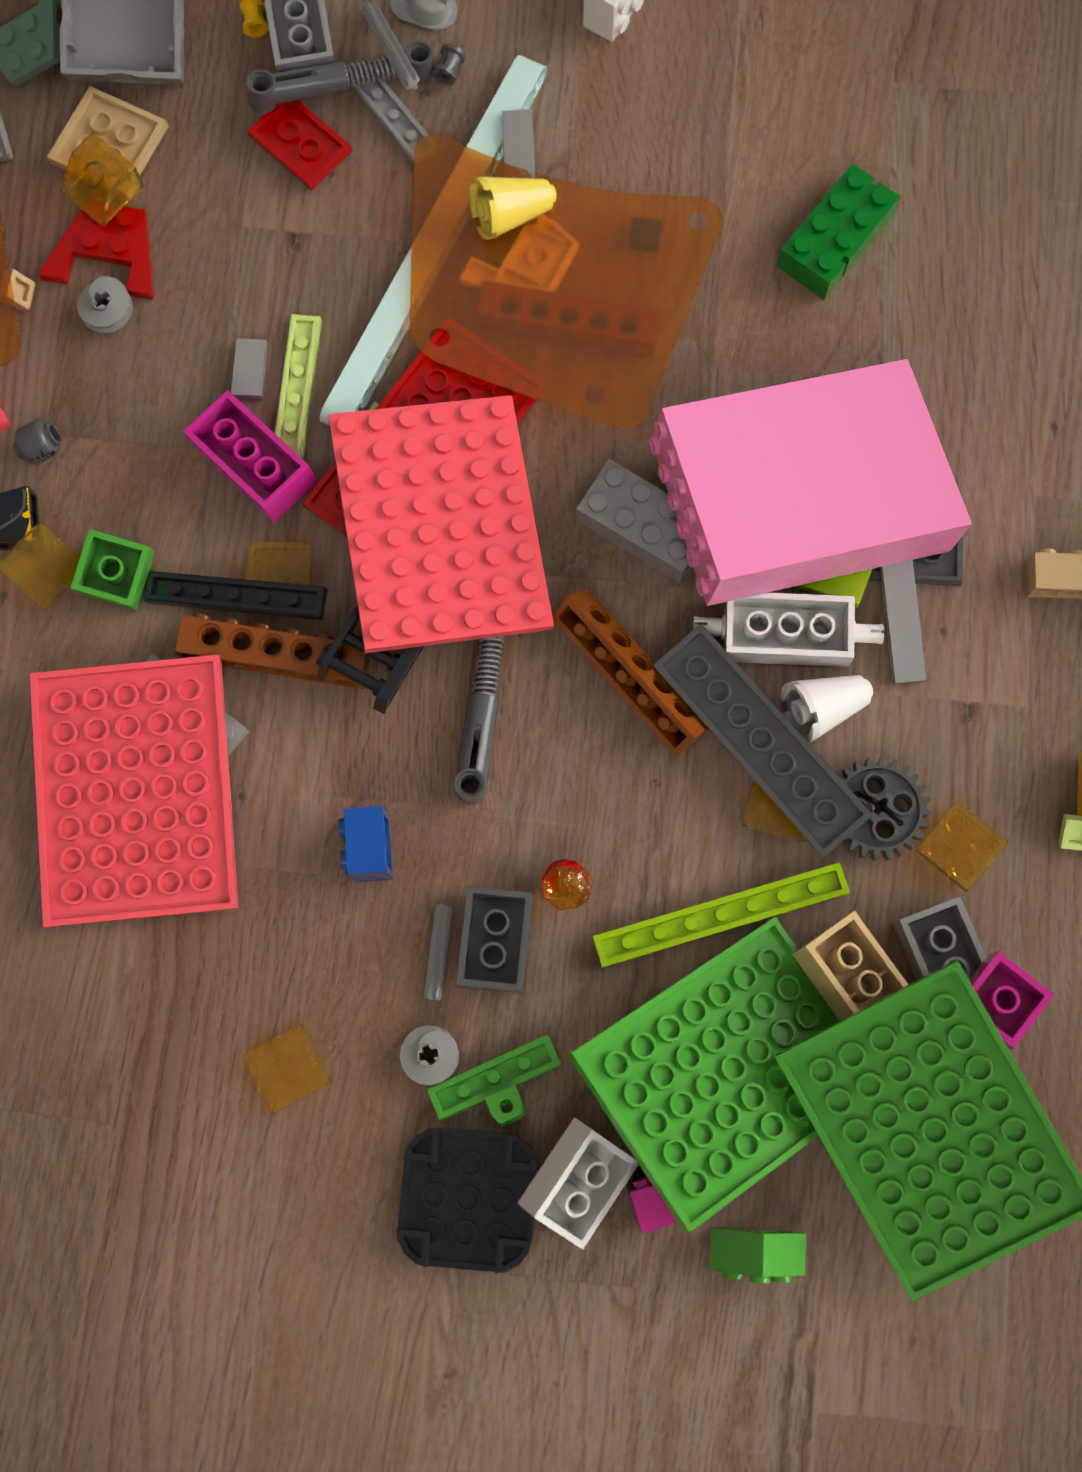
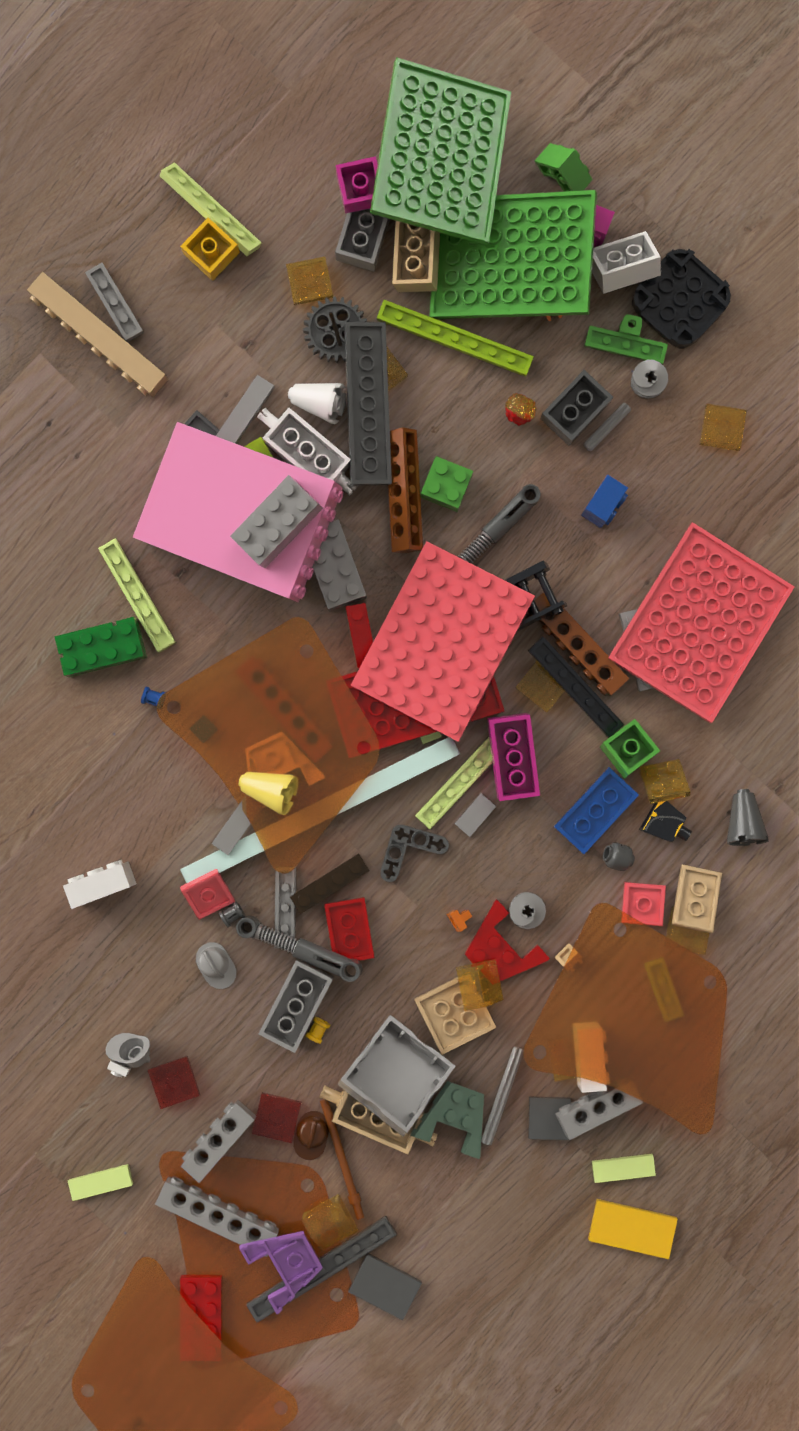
camera: 145 degrees left, 10 degrees up
(104, 475) = (596, 810): none -> blue plate
(179, 240) = (458, 919): none -> orange tile
(311, 278) = (402, 844): none -> dark grey beam
(362, 173) = (329, 883): none -> dark brown plate
(390, 45) = (258, 944): light grey axle -> none
(492, 62) = (207, 894): none -> coral tile
(554, 472) = (359, 631): none -> red slope
(585, 720) = (446, 484): none -> bright green brick
(734, 223) = (150, 696): none -> blue bush
(749, 477) = (276, 522): none -> light grey brick
(847, 322) = (137, 595): none -> yellowish green tile

